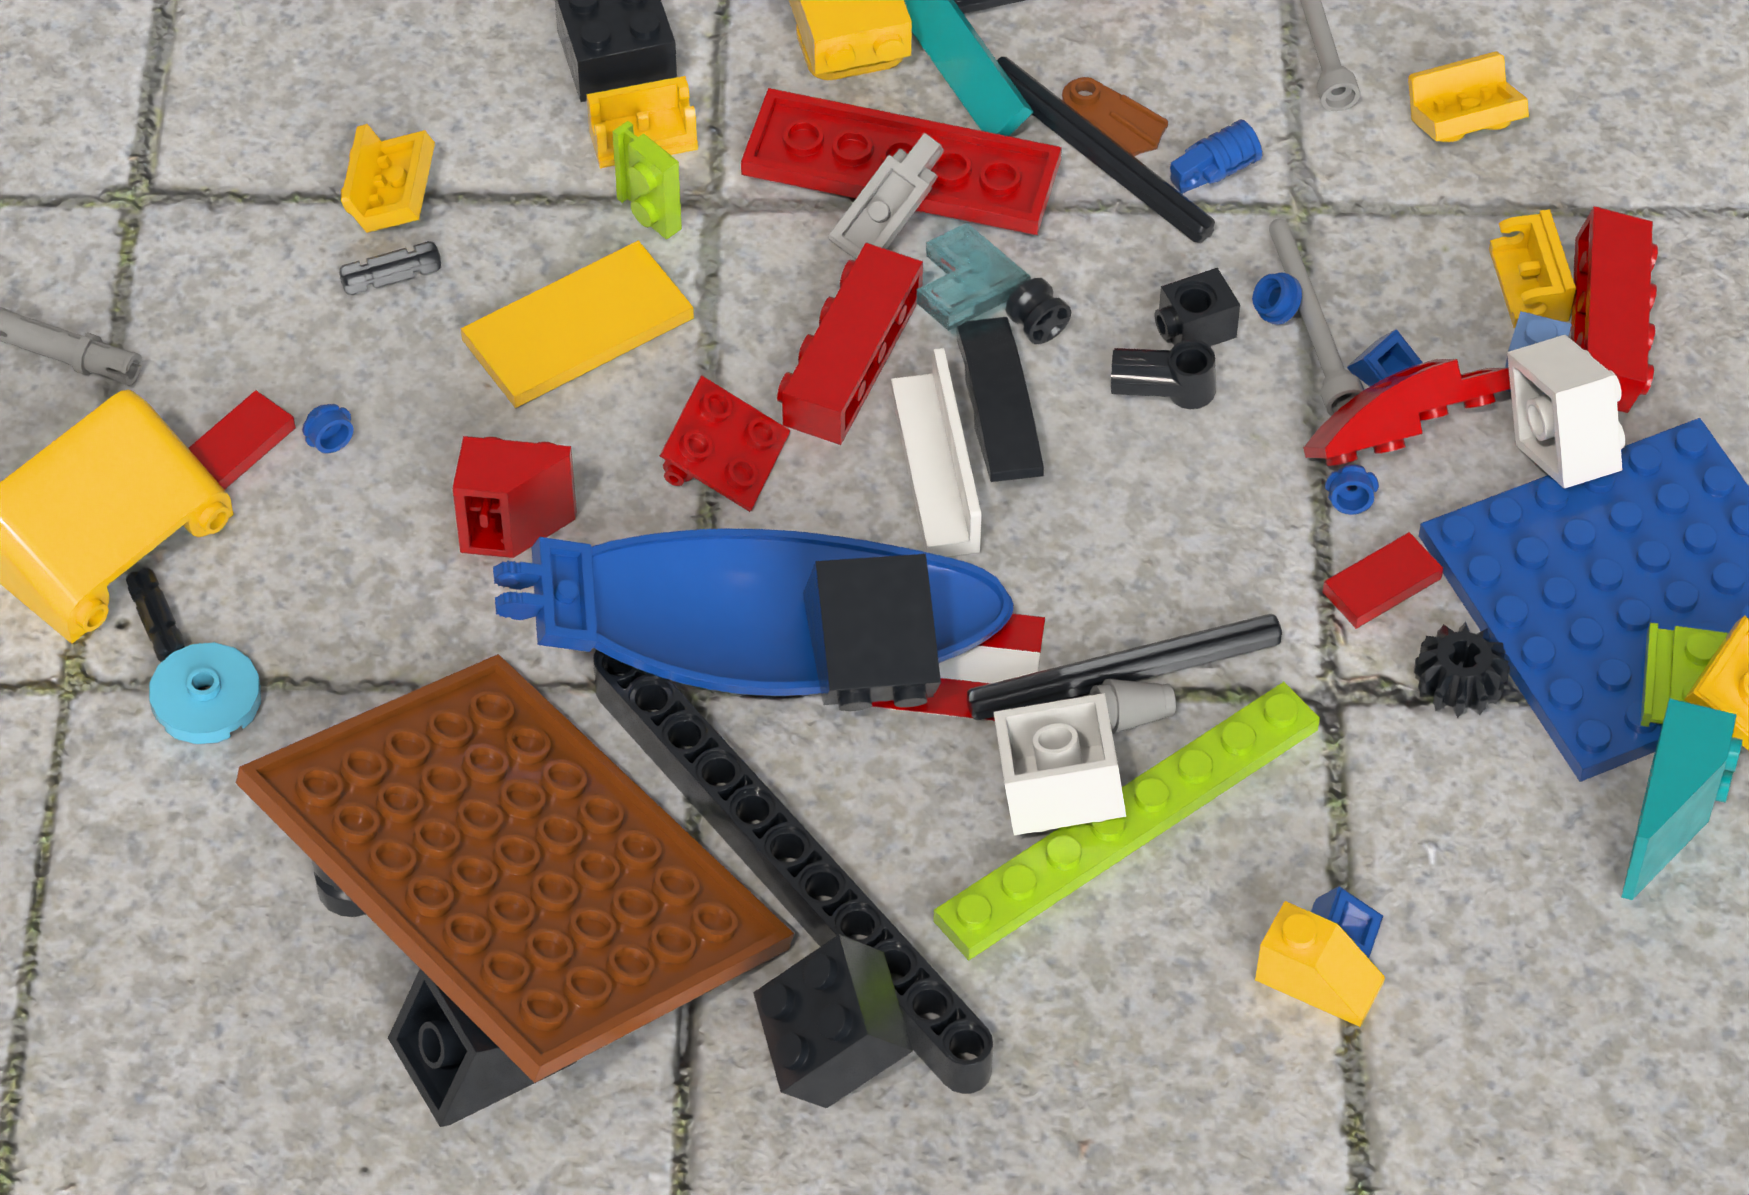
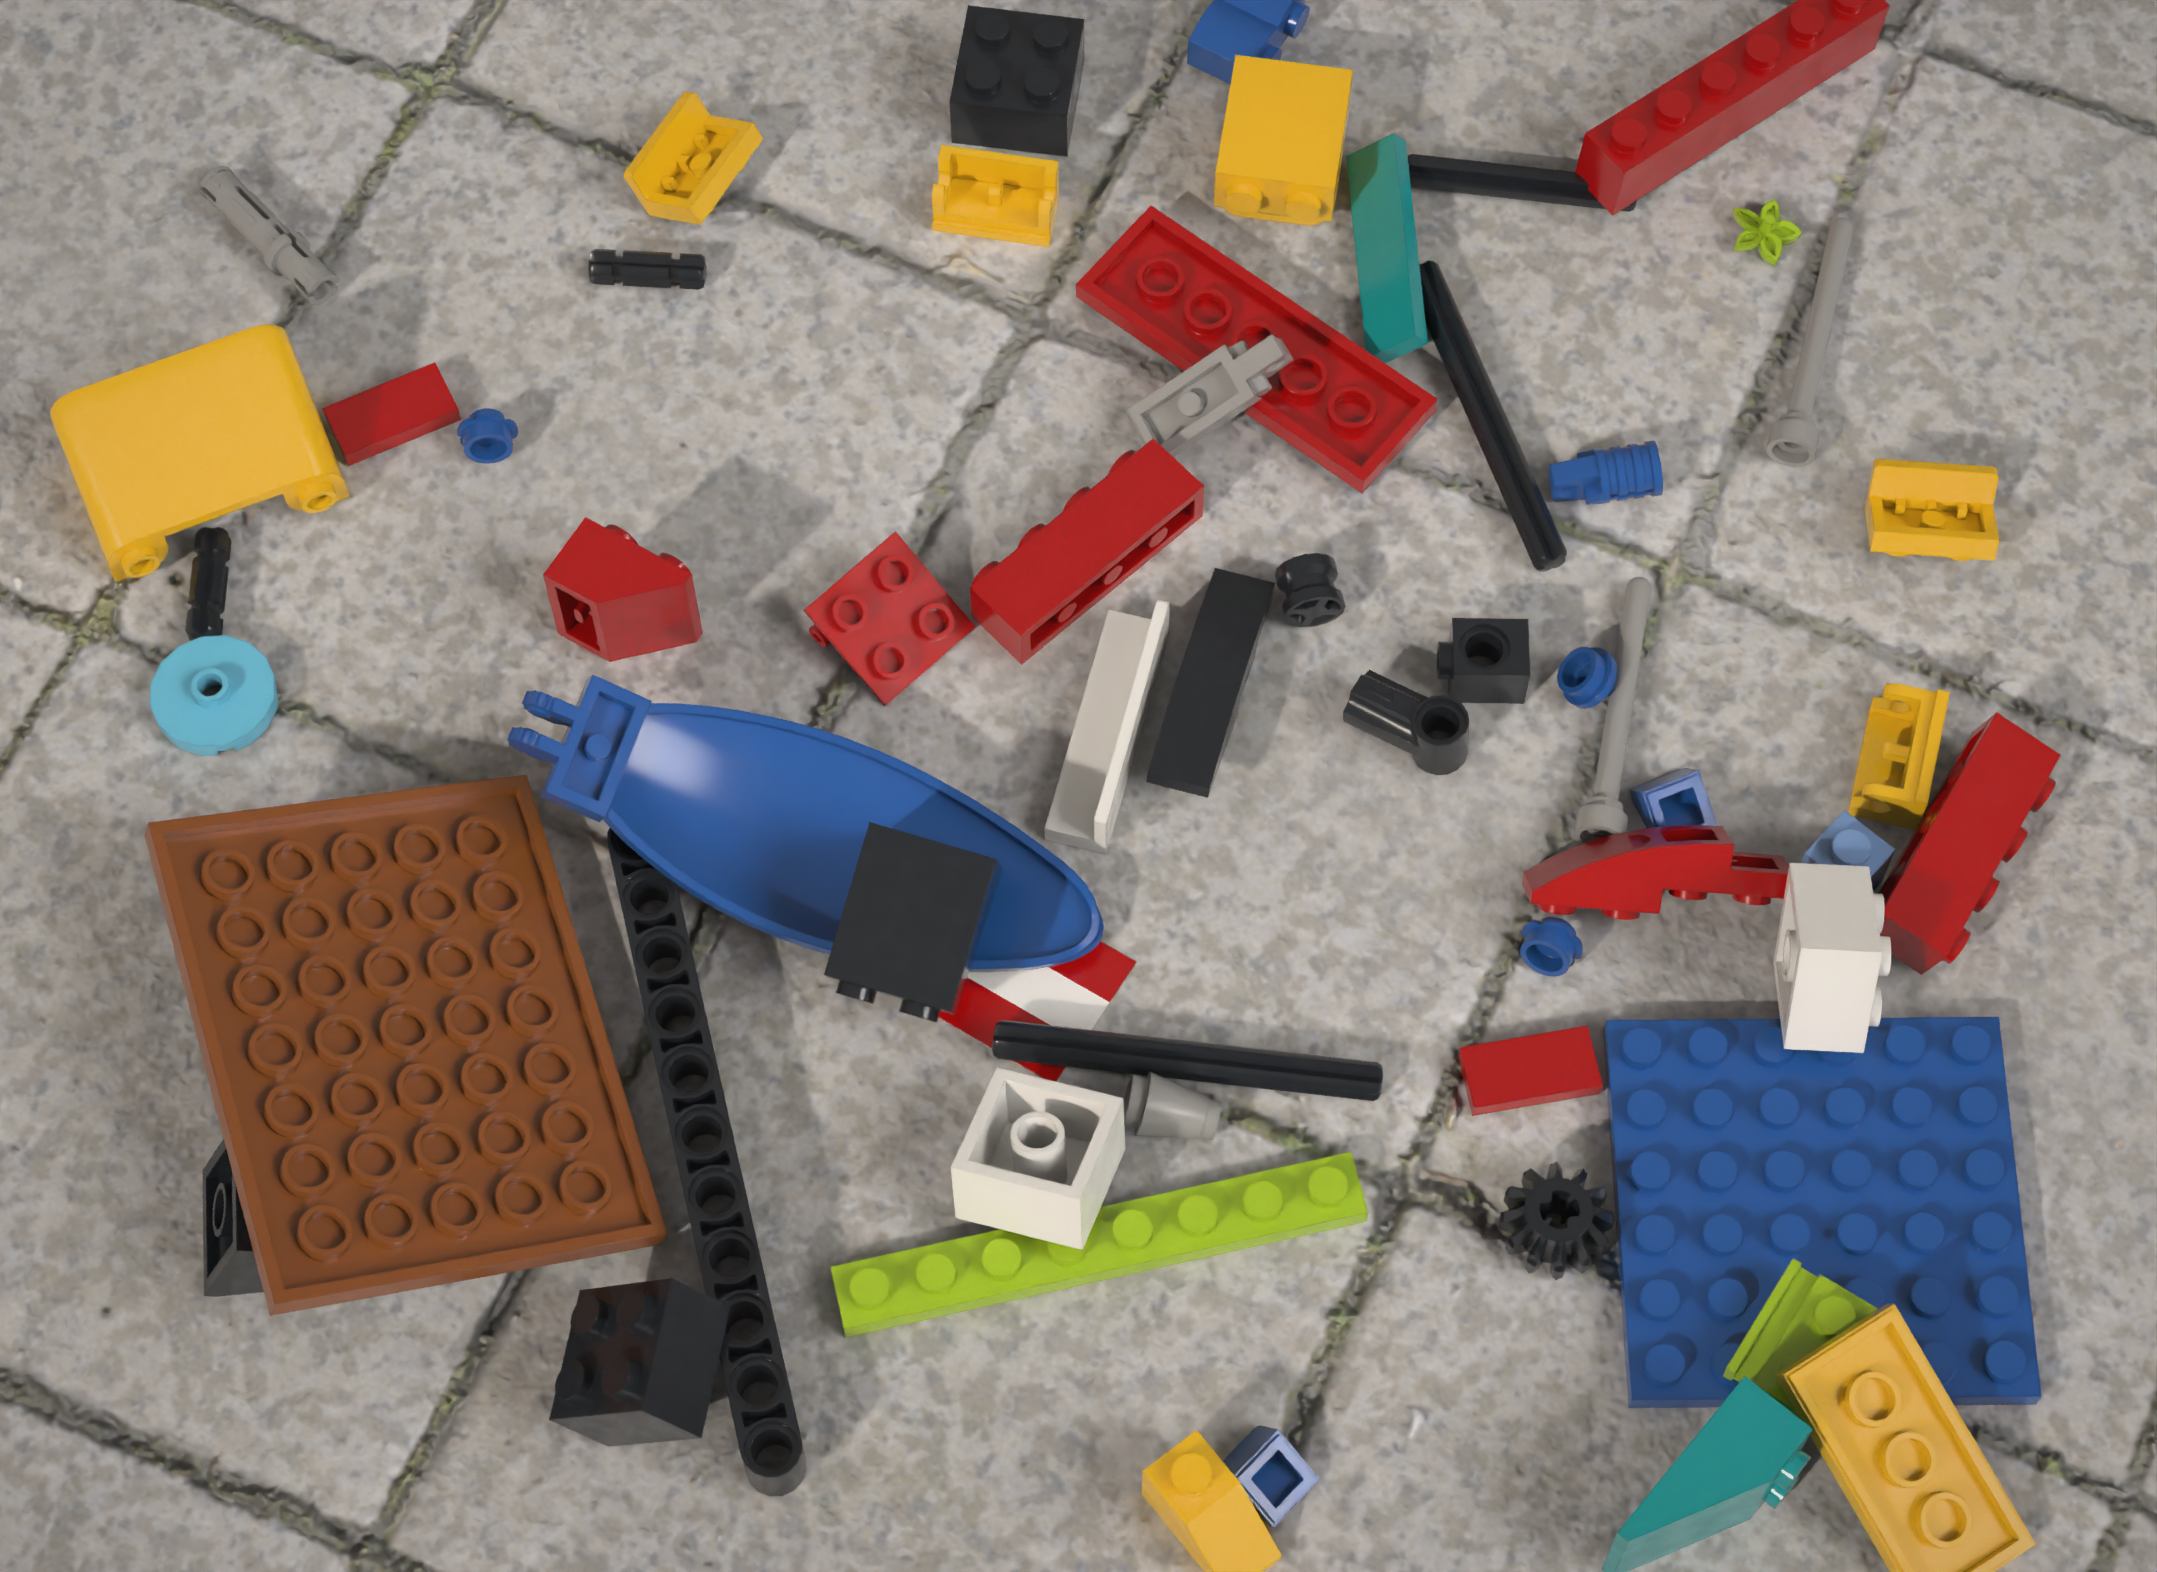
camera: 25 degrees right, 10 degrees up
(577, 323) = (810, 410): yellow tile -> none
(648, 180) = (955, 274): lime plate -> none
(976, 277) = (1266, 527): clear light blue tile -> none
(1116, 115) = (1526, 379): dark orange piece -> none

